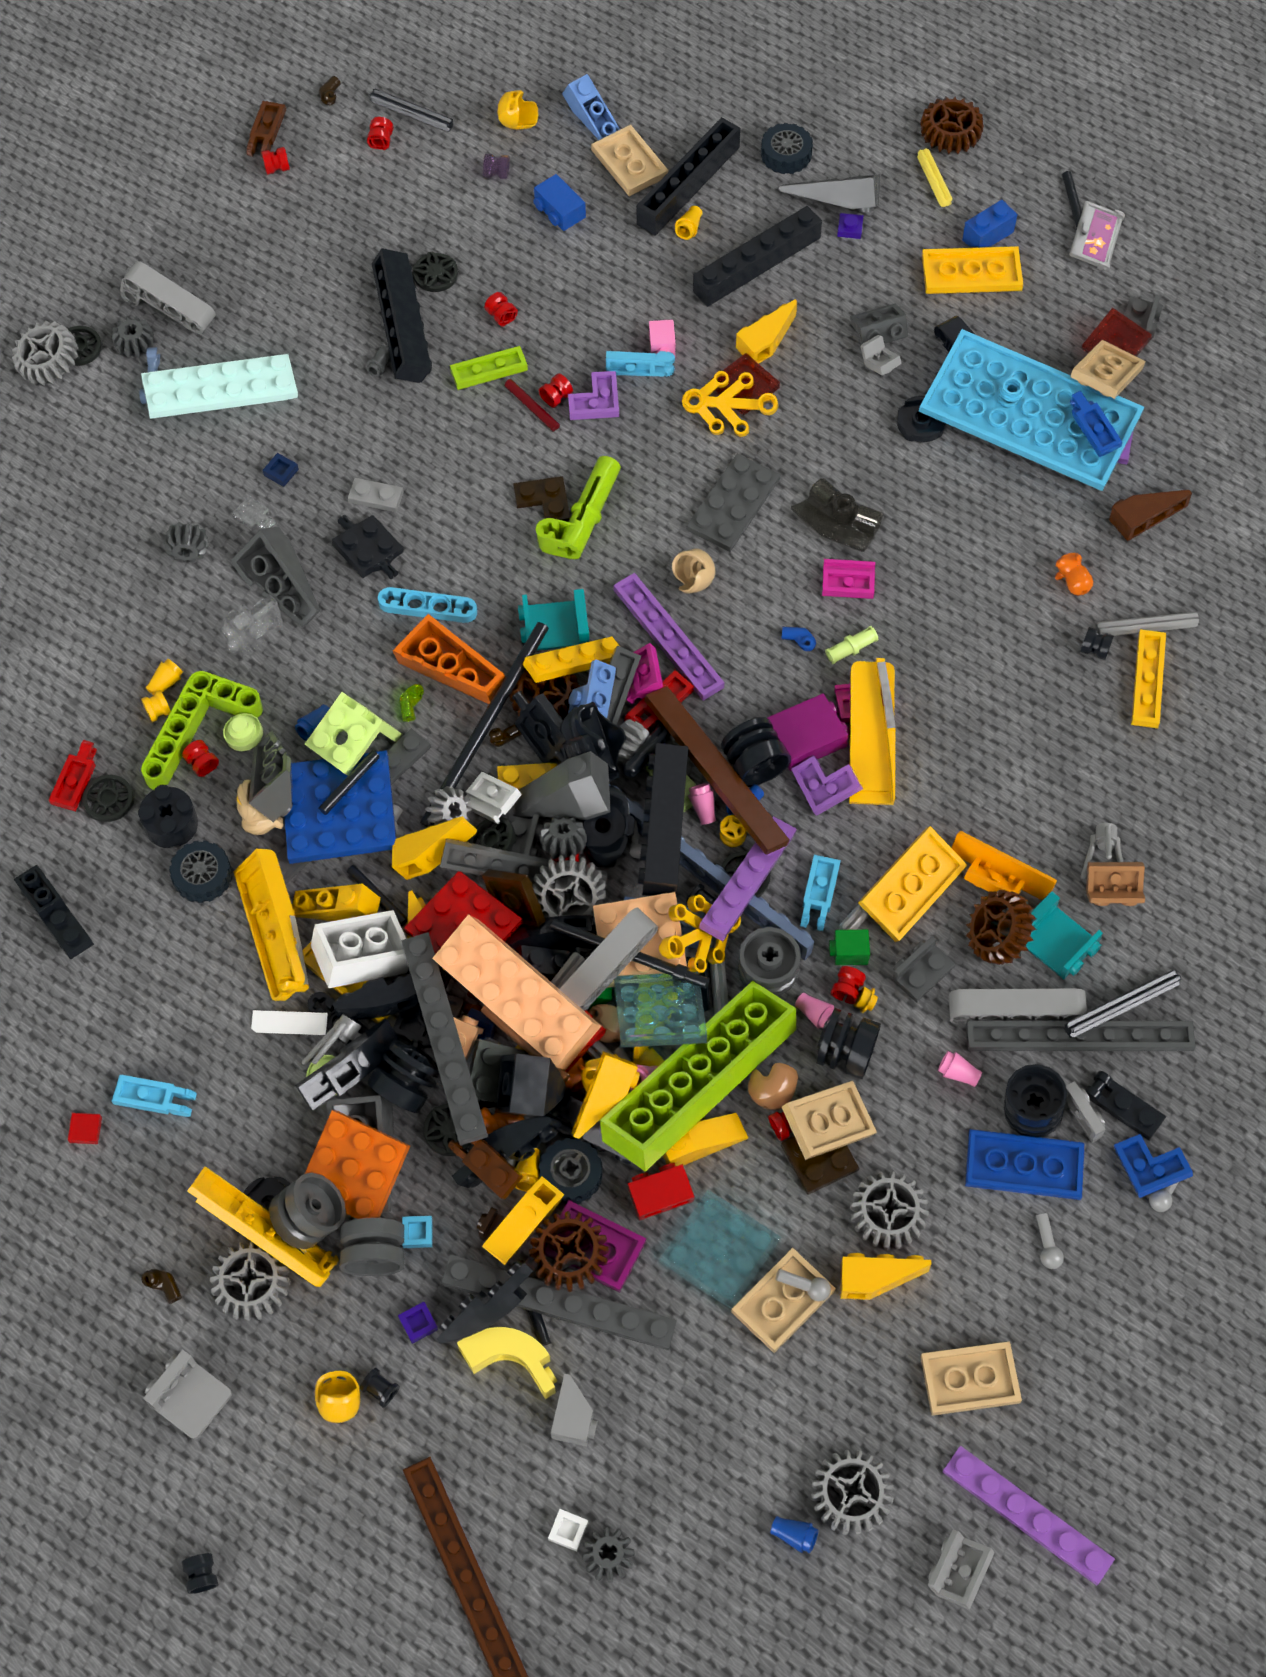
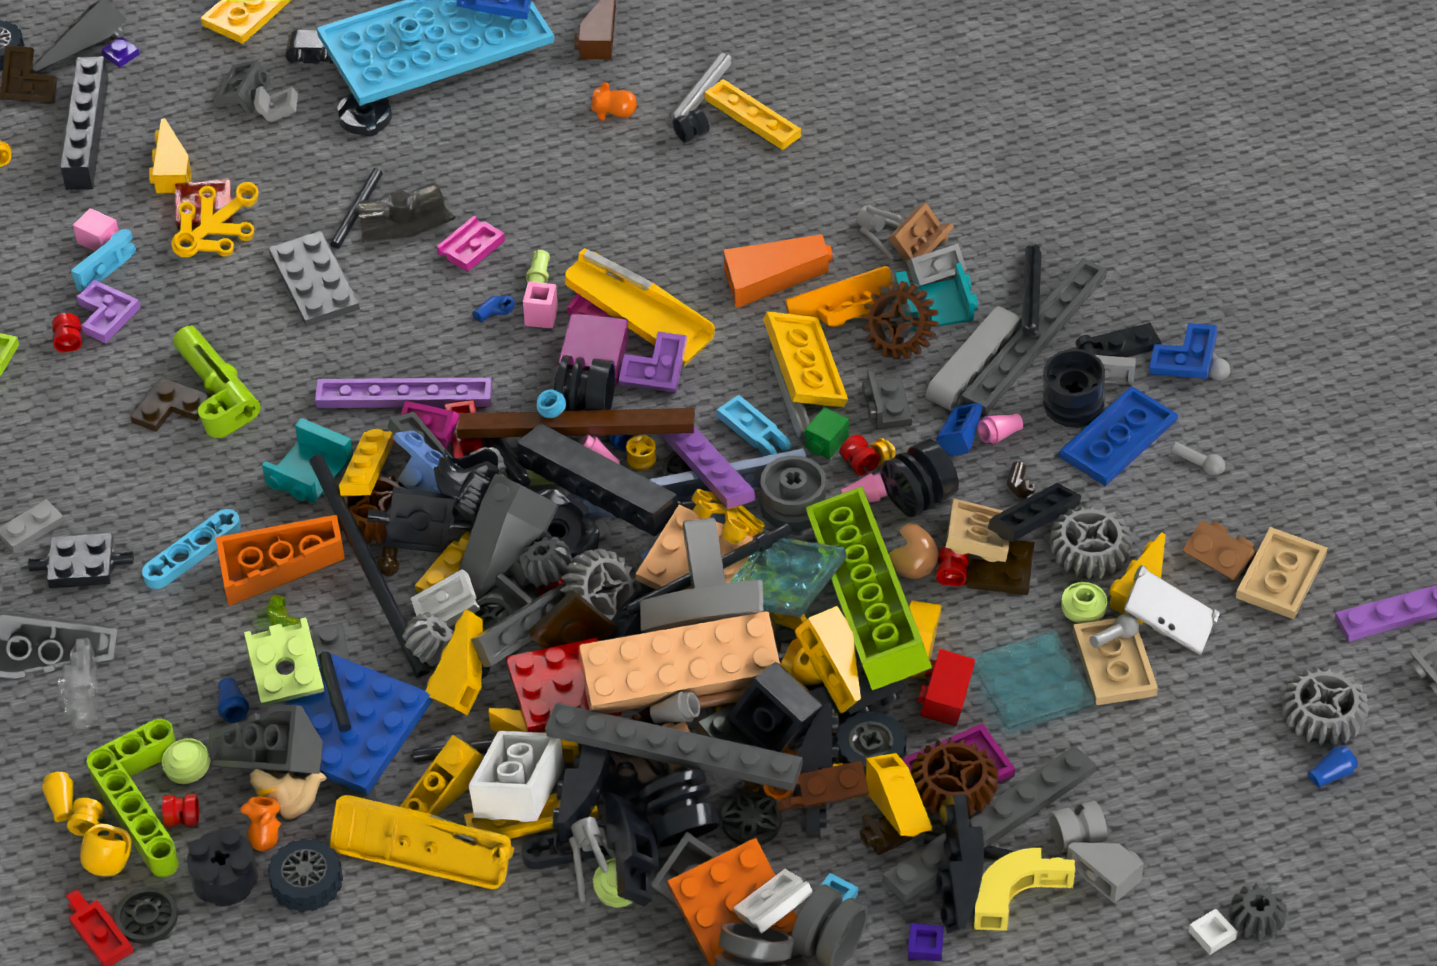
camera: 55 degrees left, 15 degrees down
(133, 736) = (105, 854): none -> yellow helmet
(219, 814) = (263, 825): none -> orange animal
(289, 1022) = (532, 887): white sticker -> none
(358, 1193) = (773, 900): none -> white plate
(480, 1017) = (677, 708): none -> light grey cone
(532, 405) = (59, 361): dark red bar -> none
(572, 973) = (701, 605): none -> light grey slope
(595, 1369) = (1081, 825): none -> light grey wheel
(694, 570) = (360, 344): tan helmet -> none
(709, 735) = (549, 398): none -> medium azure plate
(762, 189) = (20, 83): none -> dark brown plate
(818, 666) = (540, 305): none -> bright pink brick
(821, 1242) = (1084, 602): none -> yellowish green plate
(832, 478) = (353, 213): none -> black bar
(856, 1300) = (1157, 600): none -> door
(878, 1150) = (1034, 512): none -> black plate
(913, 1117) = (1016, 482): none -> dark brown arm
(925, 1042) = (960, 429): none -> blue slope
(959, 1315) = (1219, 550): none -> medium nougat bracket
(993, 799) = (774, 266): none -> orange slope
(1092, 915) = (935, 265): none -> light grey plate

